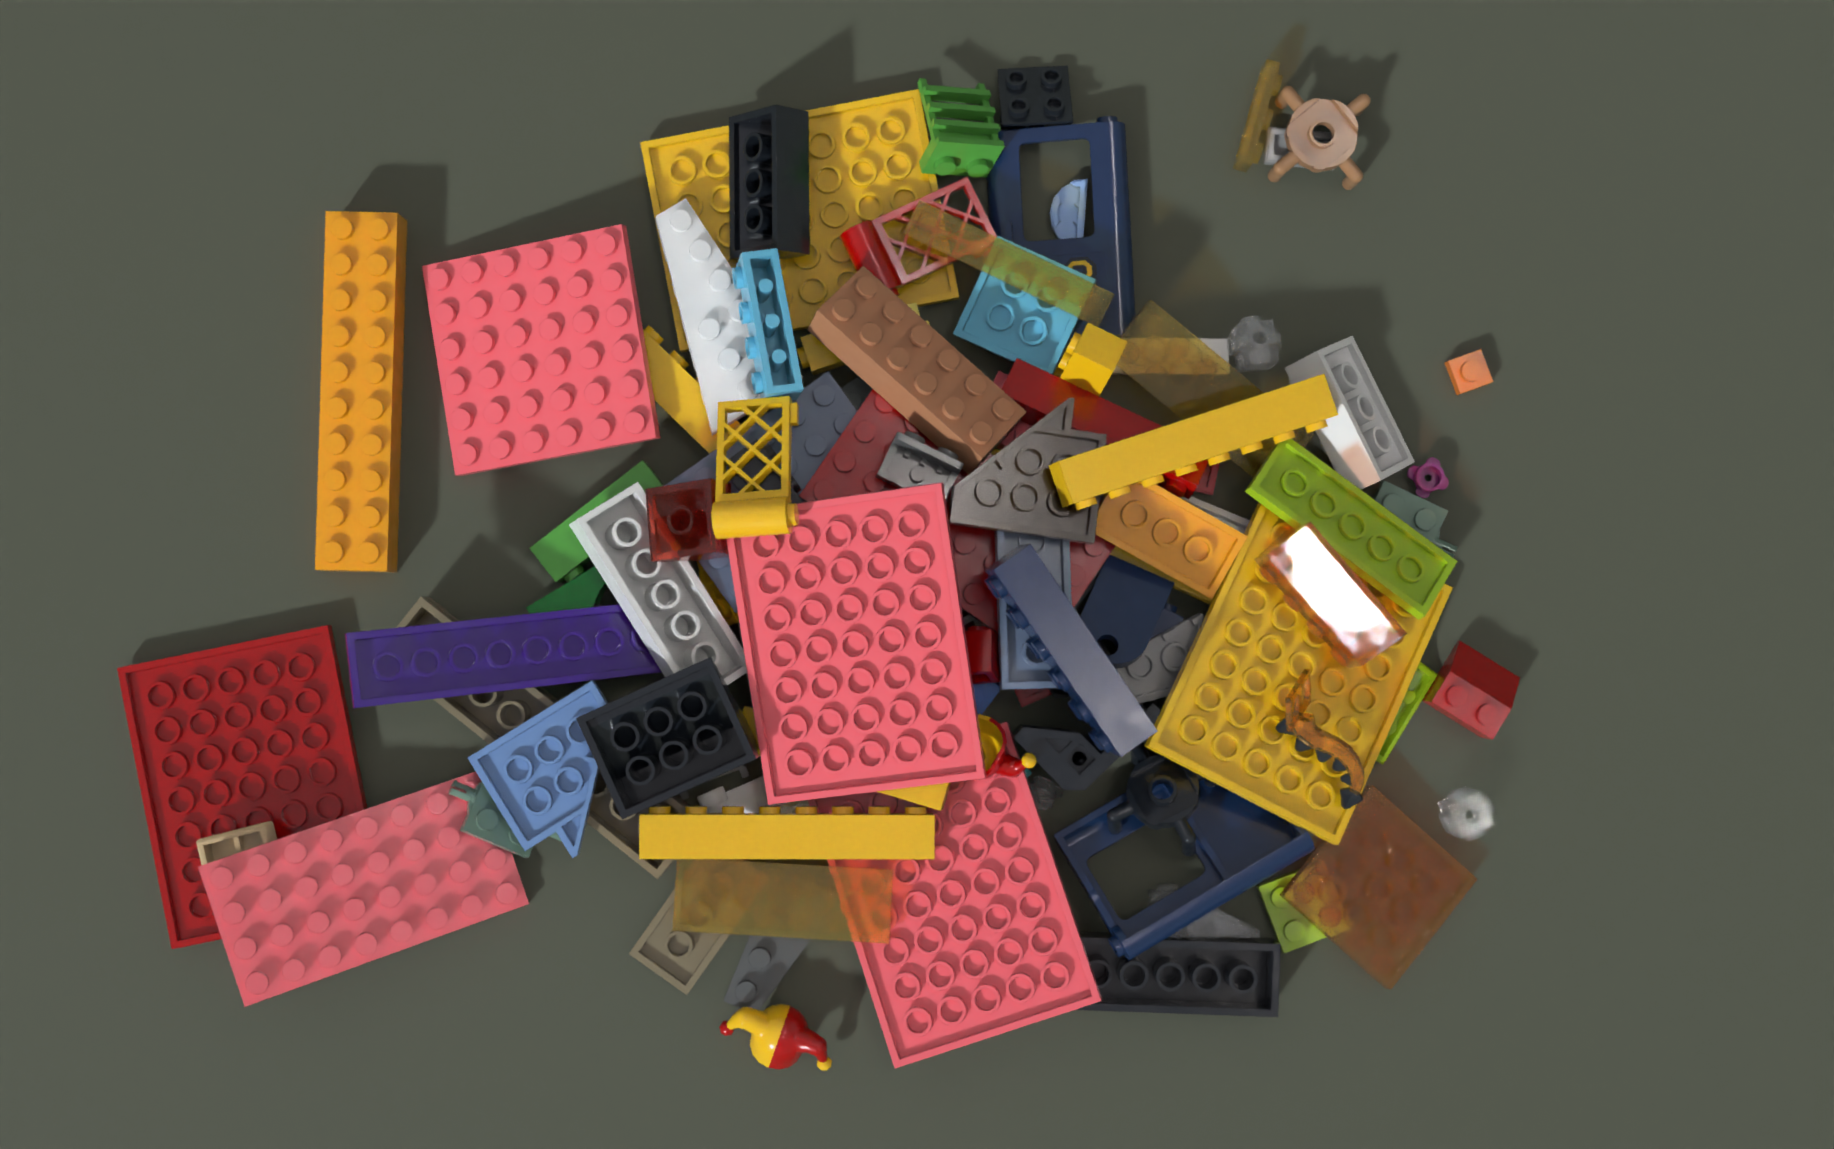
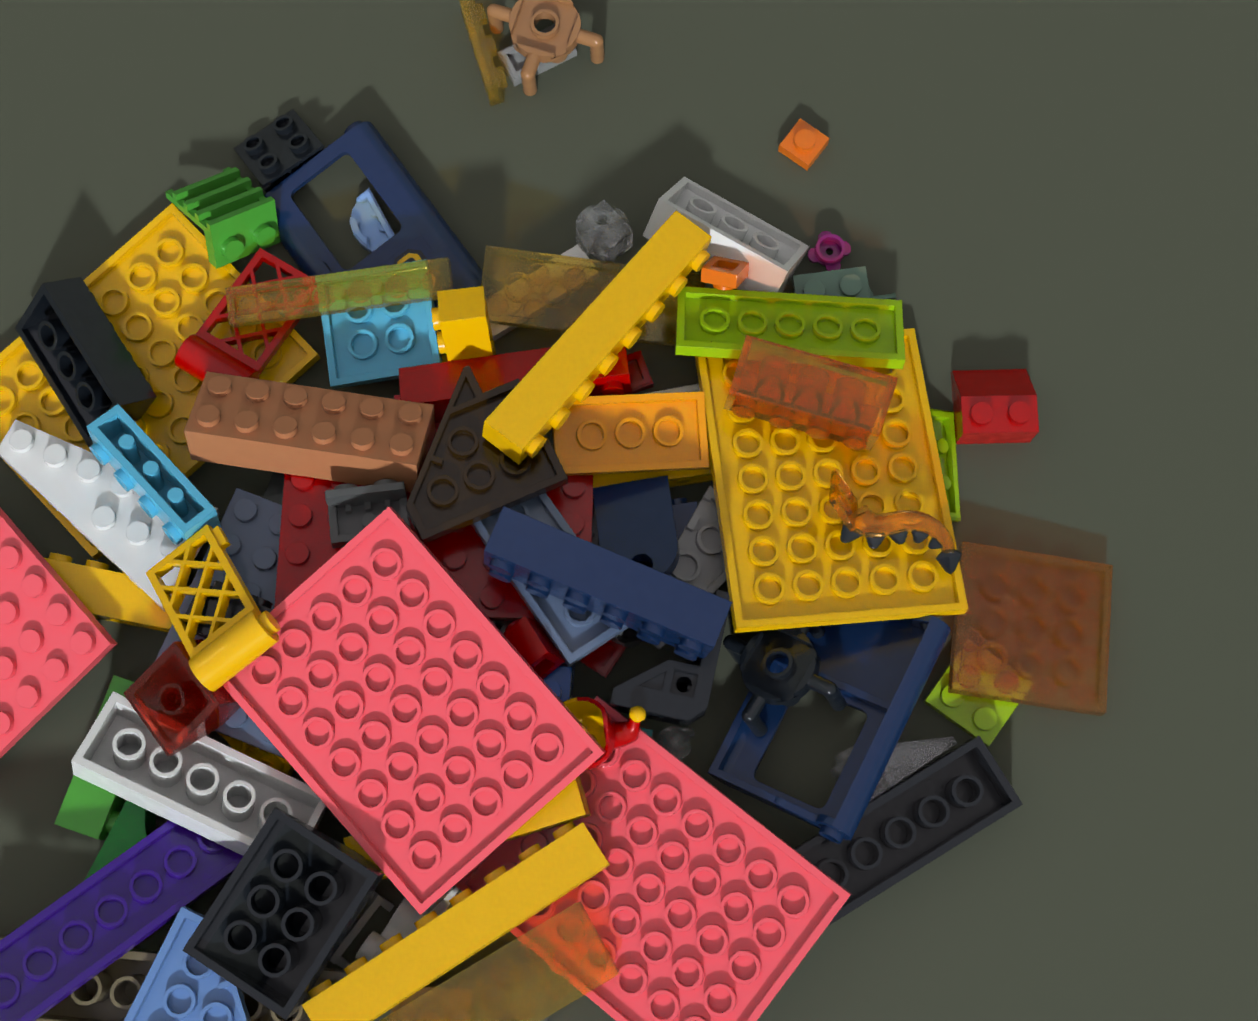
camera: 25 degrees left, 10 degrees down
(817, 355) = (222, 480): yellow brick -> none
(1329, 447) = (724, 273): none -> orange plate
(1454, 811) = (1051, 519): clear brick -> none

